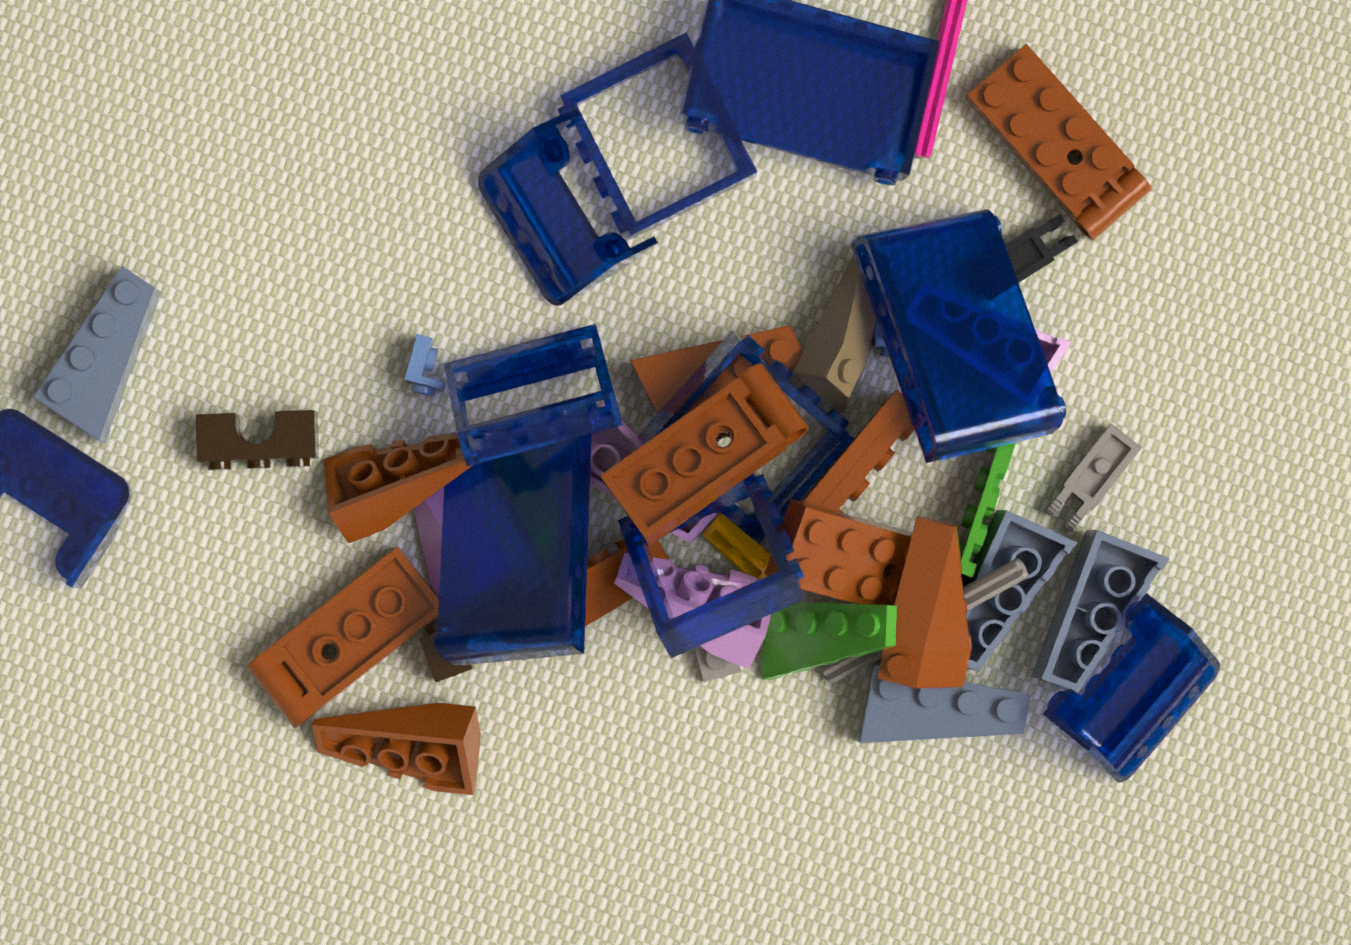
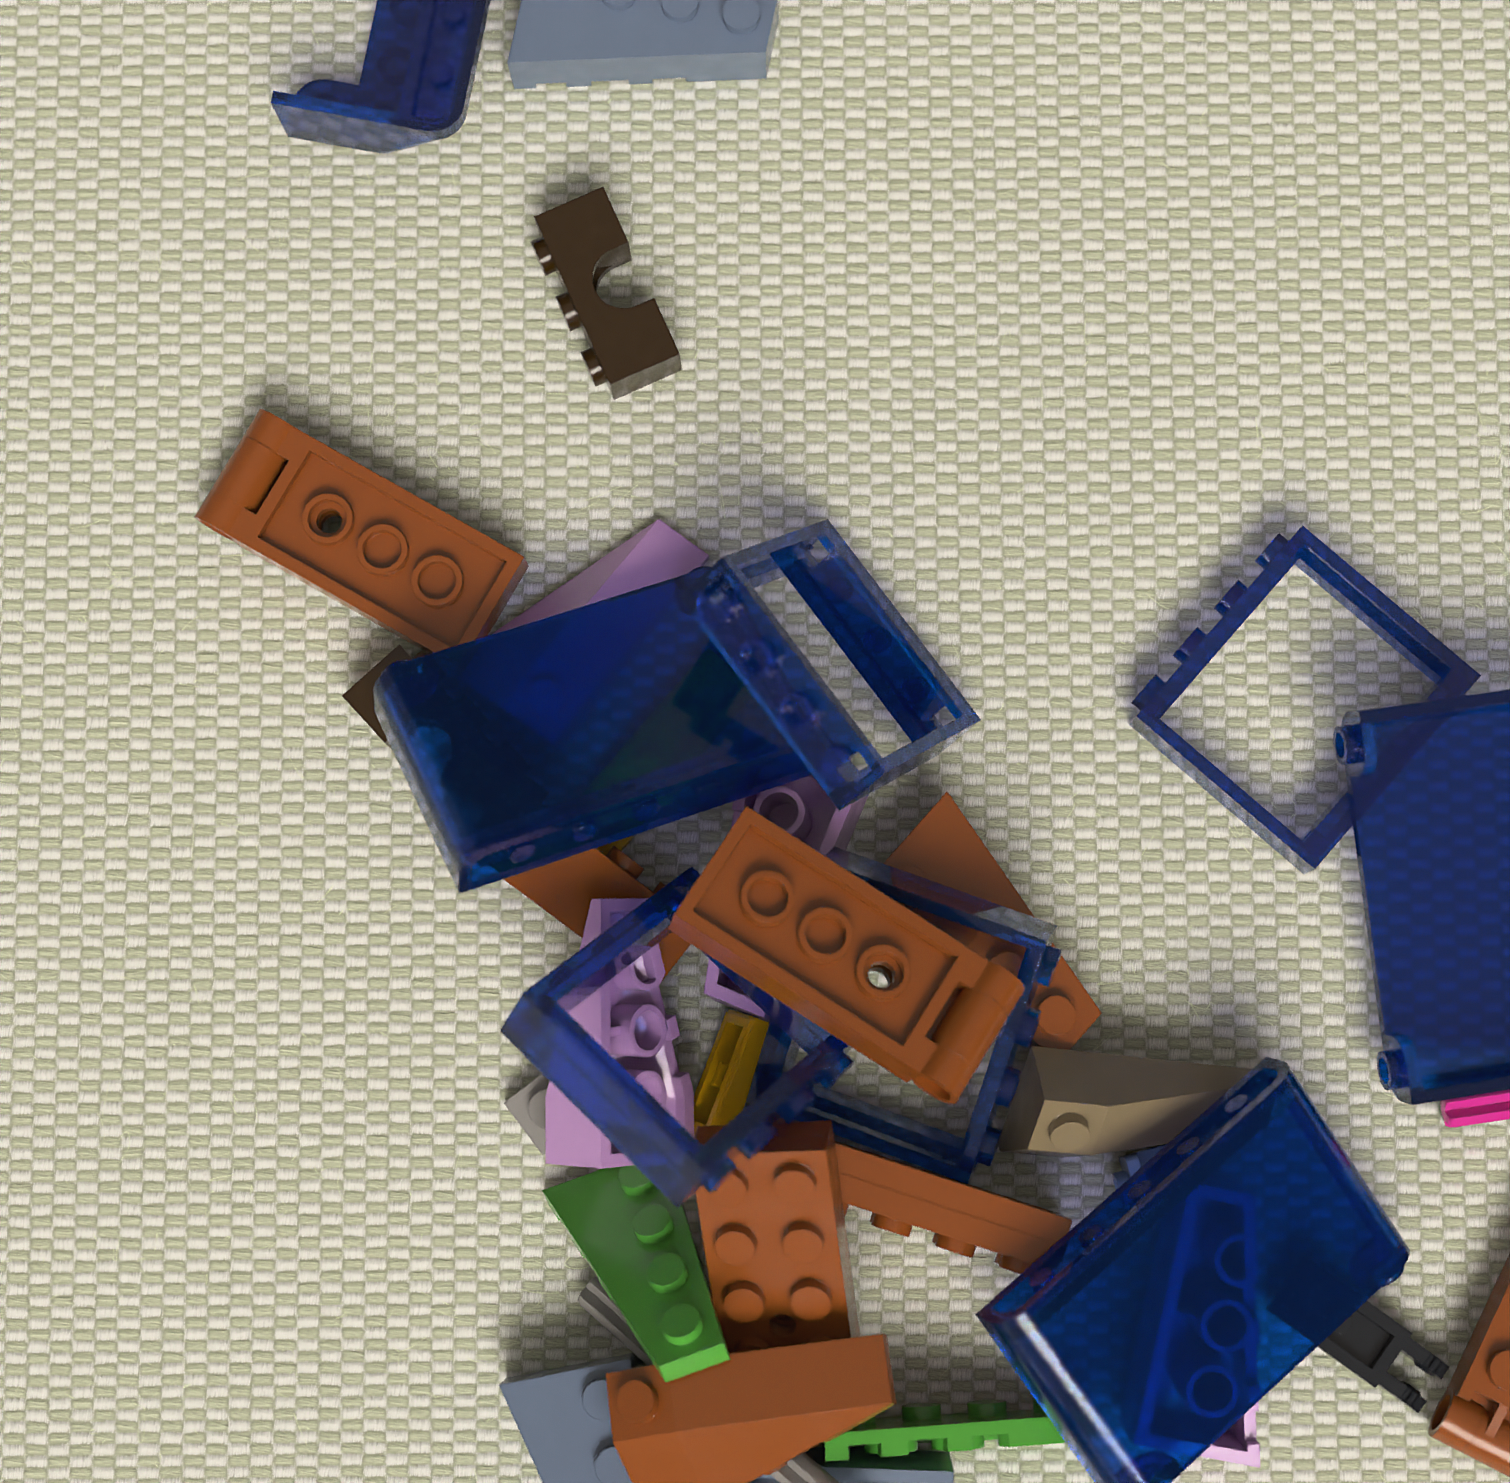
camera: 75 degrees right, 5 degrees down
(379, 486) = (604, 494): dark orange wedge -> none
(420, 741) = (251, 715): dark orange wedge -> none
(423, 358) = (819, 483): medium blue bracket -> none
(545, 218) = (1110, 580): clear blue windscreen -> none

